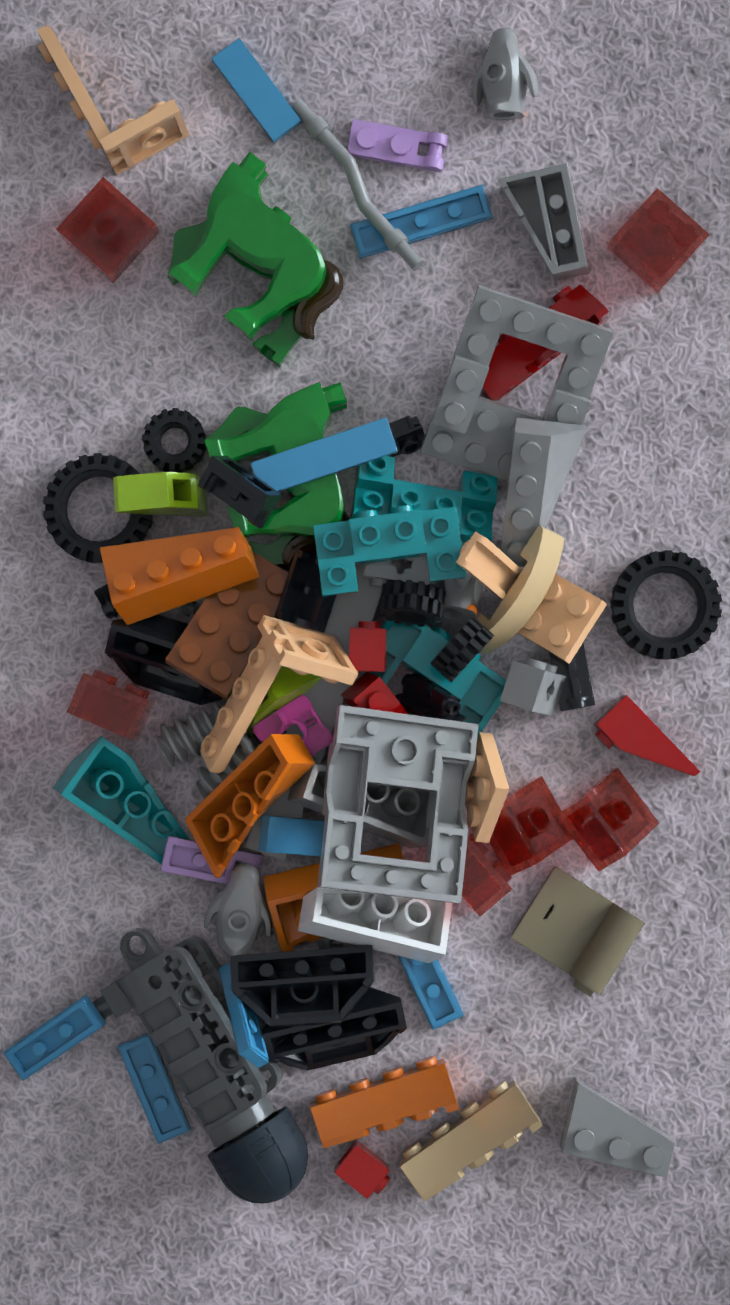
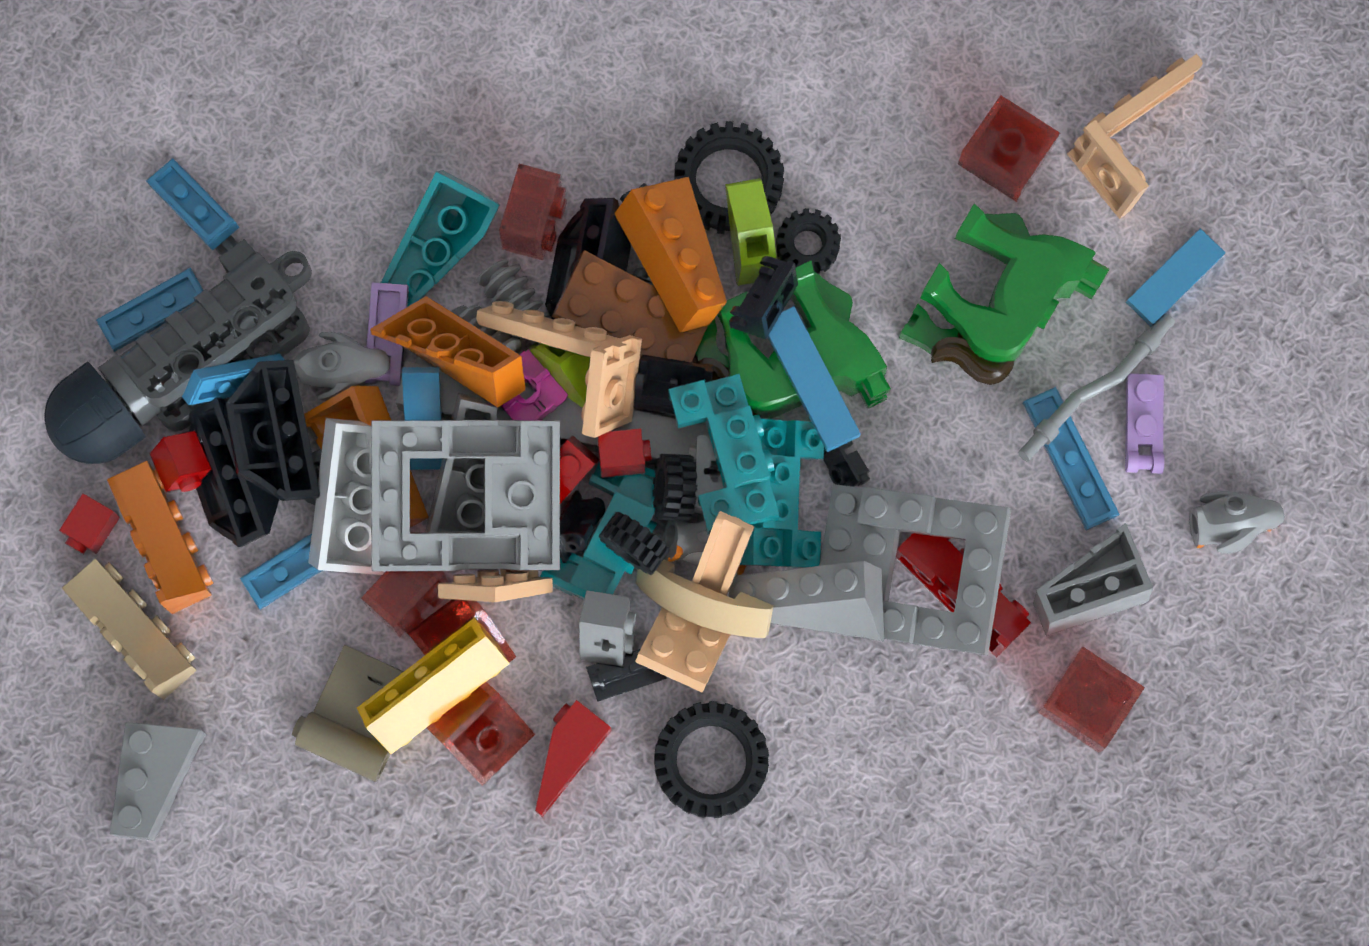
camera: 75 degrees right, 10 degrees down
(316, 1075) = (180, 461): none -> red brick
(568, 858) = (432, 686): none -> brick

